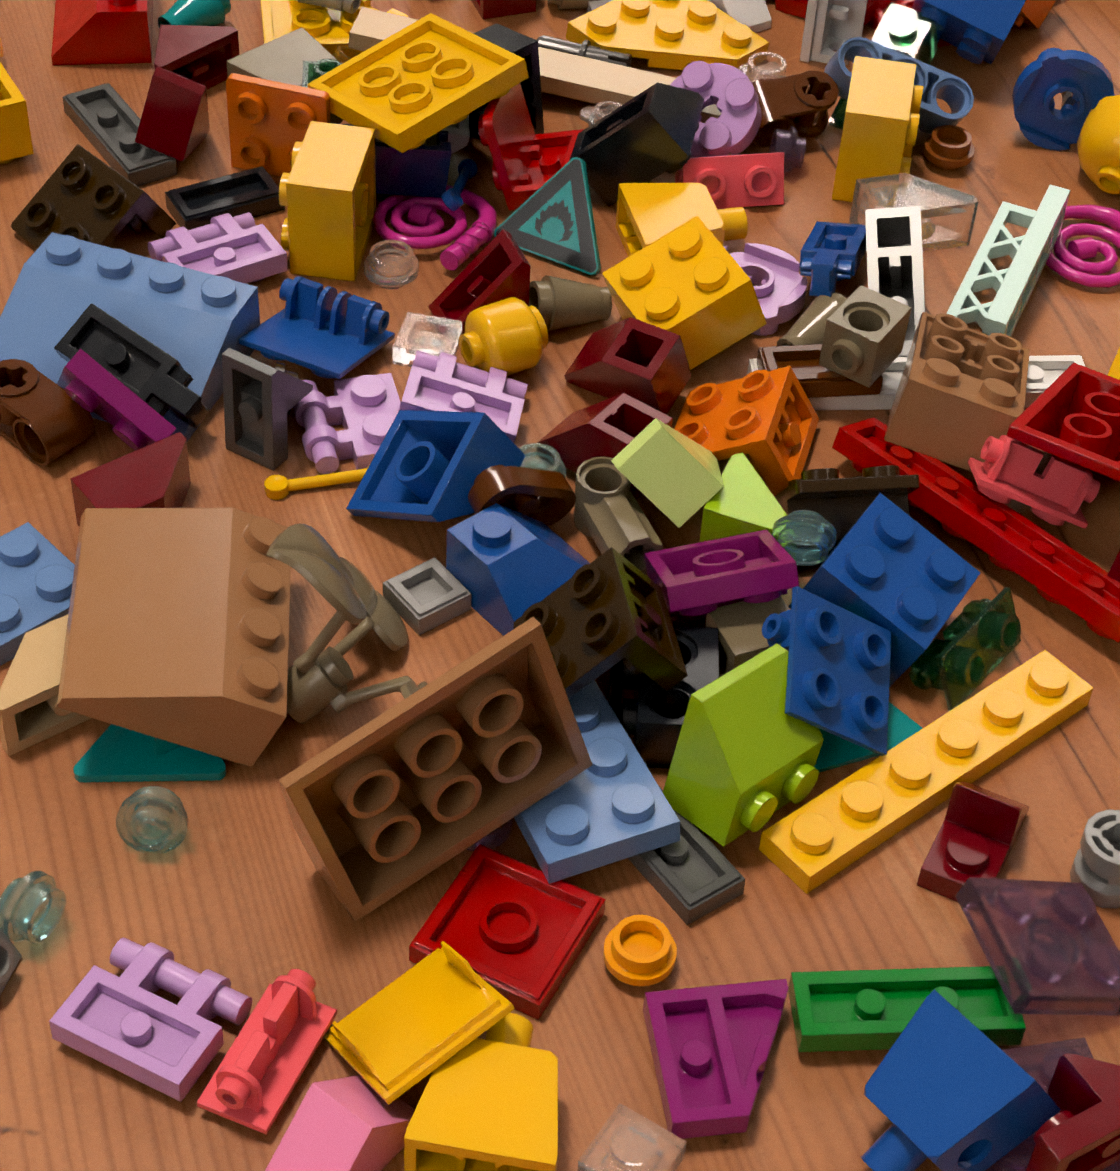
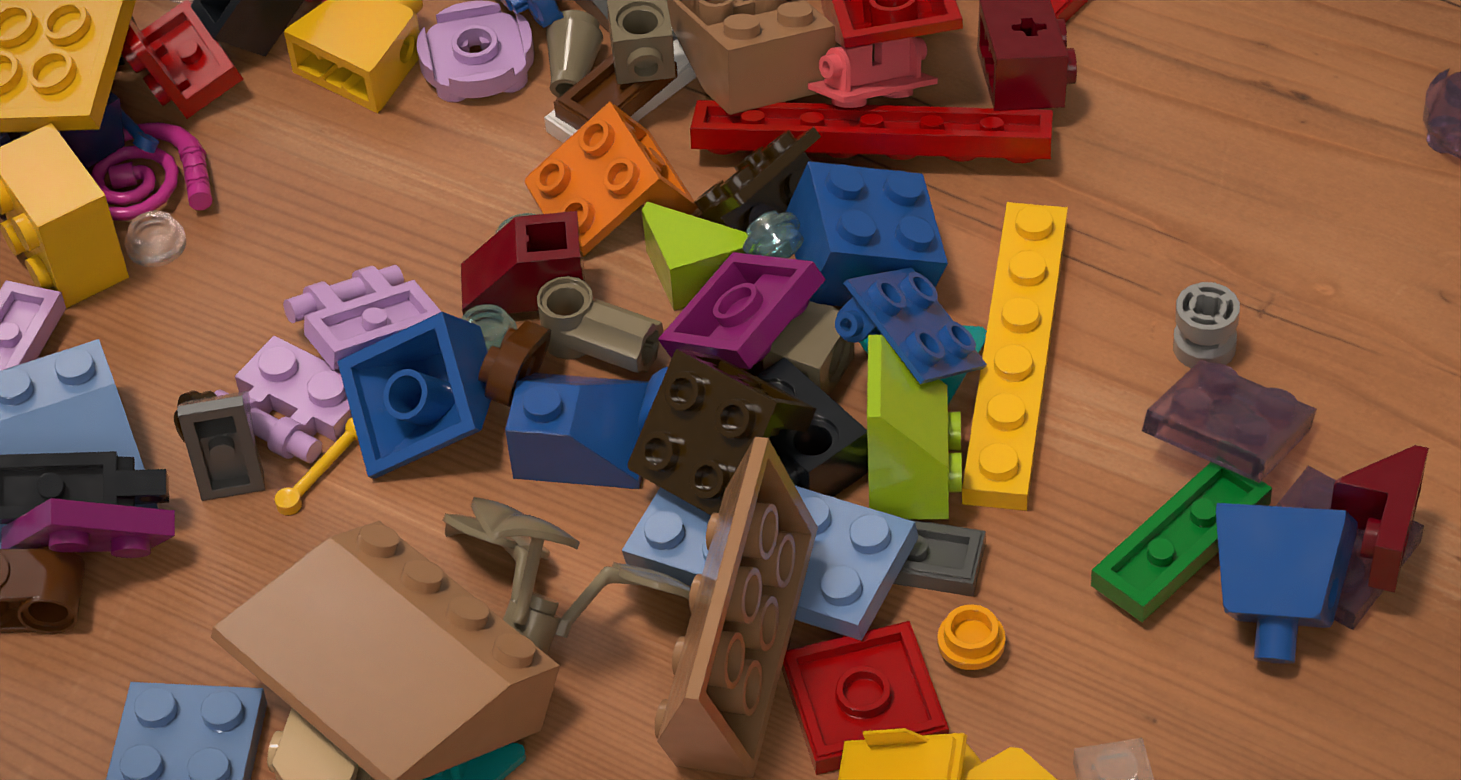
camera: 35 degrees left, 5 degrees up
(142, 479) = (193, 594): dark red slope -> none
(321, 329) = (176, 346): blue hinge -> none
(427, 335) = (267, 284): clear plate -> none
(427, 596) = (521, 488): light grey tile -> none
(492, 276) = (276, 209): dark red slope -> none
(504, 336) = (338, 237): yellow head -> none
(559, 221) = (258, 102): black piece -> none
(569, 302) = (344, 172): dark tan cone -> none
(633, 361) = (465, 189): dark red slope -> none
(670, 470) = (623, 258): yellowish green slope -> none
(688, 288) = (453, 99): yellow brick -> none
(712, 1052) = (1094, 667): magenta wing -> none
(970, 648) = (957, 220): clear green hinge -> none
(972, 839) = (1102, 385): dark red slope -> none

